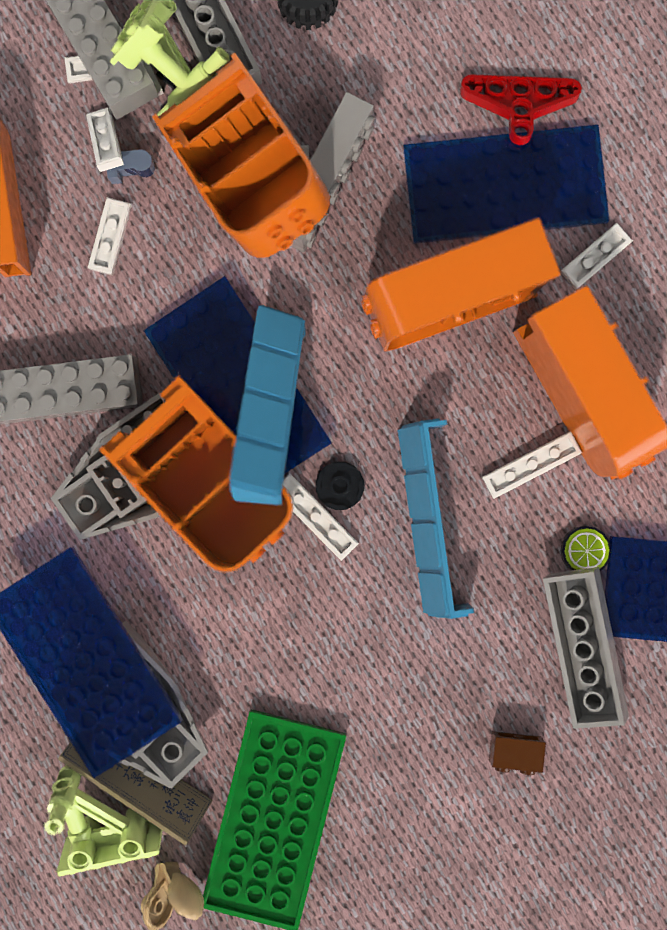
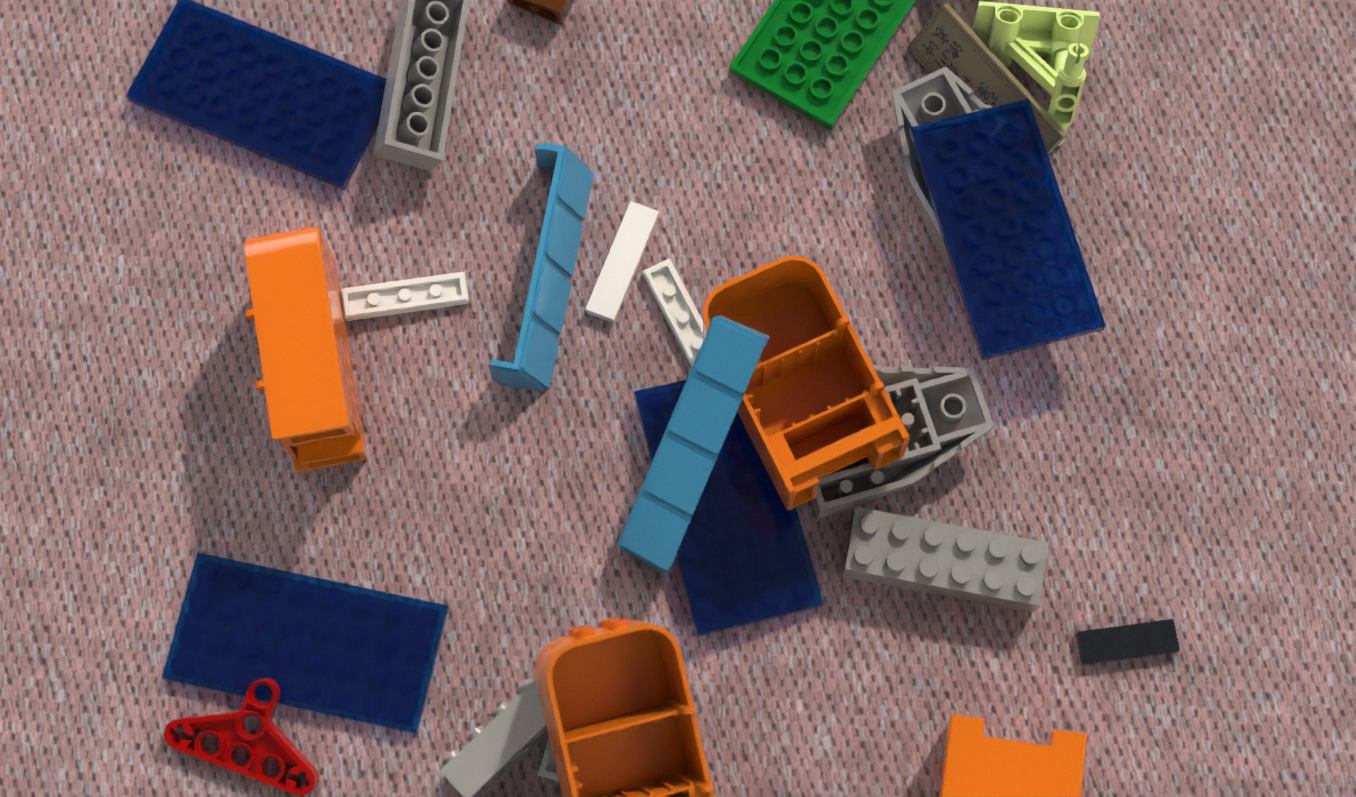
camera: 165 degrees left, 15 degrees down
(109, 236) = (830, 740): white tile -> none
(339, 494) = (644, 354): black tile -> none
(376, 547) = (622, 262): none -> white tile
(459, 285) = (418, 507): orange piece -> none
(585, 548) = (378, 183): lime tile -> none
(596, 256) = (230, 517): white tile -> none

